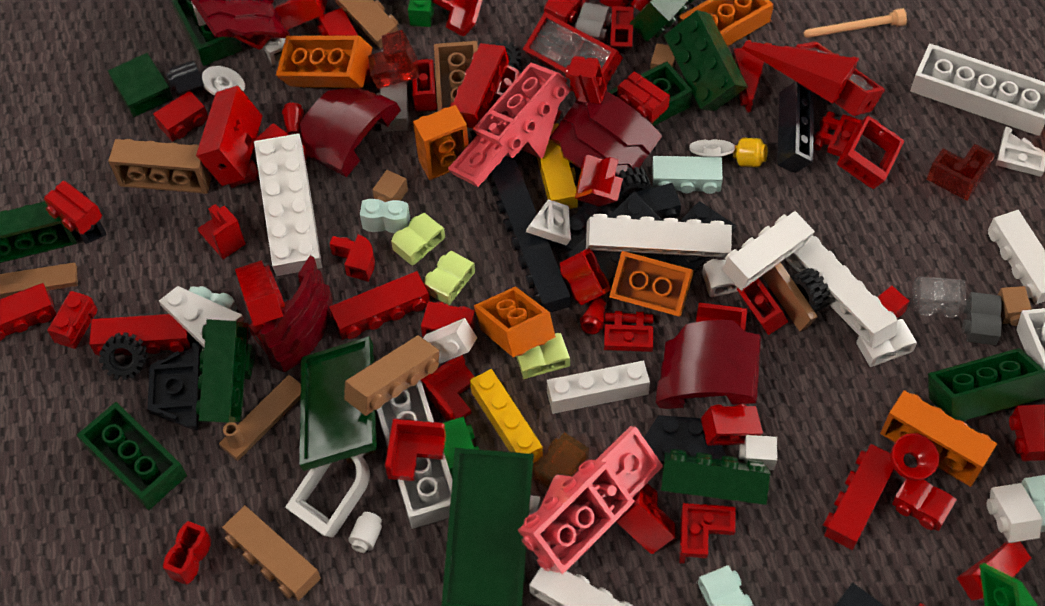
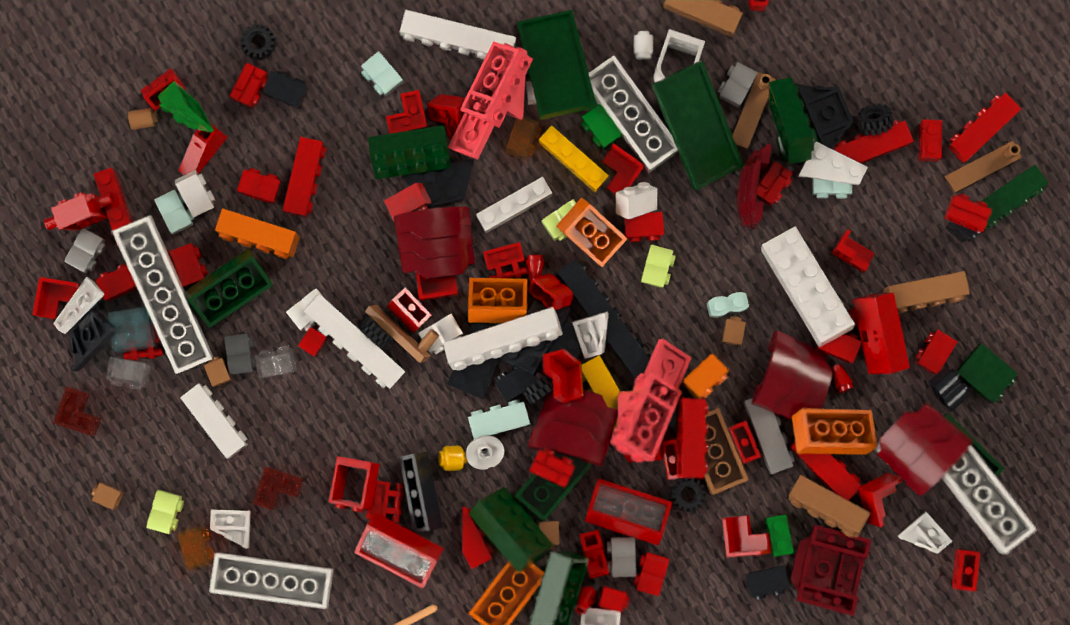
camera: 160 degrees right, 25 degrees up
(132, 455) = (832, 46): dark green brick -> none
(220, 78) = (906, 397): white dish -> none
(260, 292) = (789, 184): red brick -> none
(267, 449) = (737, 85): none -> light grey brick
(359, 255) = (731, 263): red brick -> none
(379, 305) = (701, 225): red brick -> none
(391, 375) = (662, 149): medium nougat brick -> none
(395, 62) = (771, 440): clear red brick -> none
(412, 441) = (634, 102): red panel -> none
(418, 238) = (694, 294): yellowish green brick -> none
(586, 79) = (599, 450): red brick -> none
(759, 448) = (383, 188): white brick -> none
(767, 250) = (414, 346): white brick -> none
(817, 71) = (411, 534): red wedge -> none
(922, 449) = (265, 200): red piece -> none

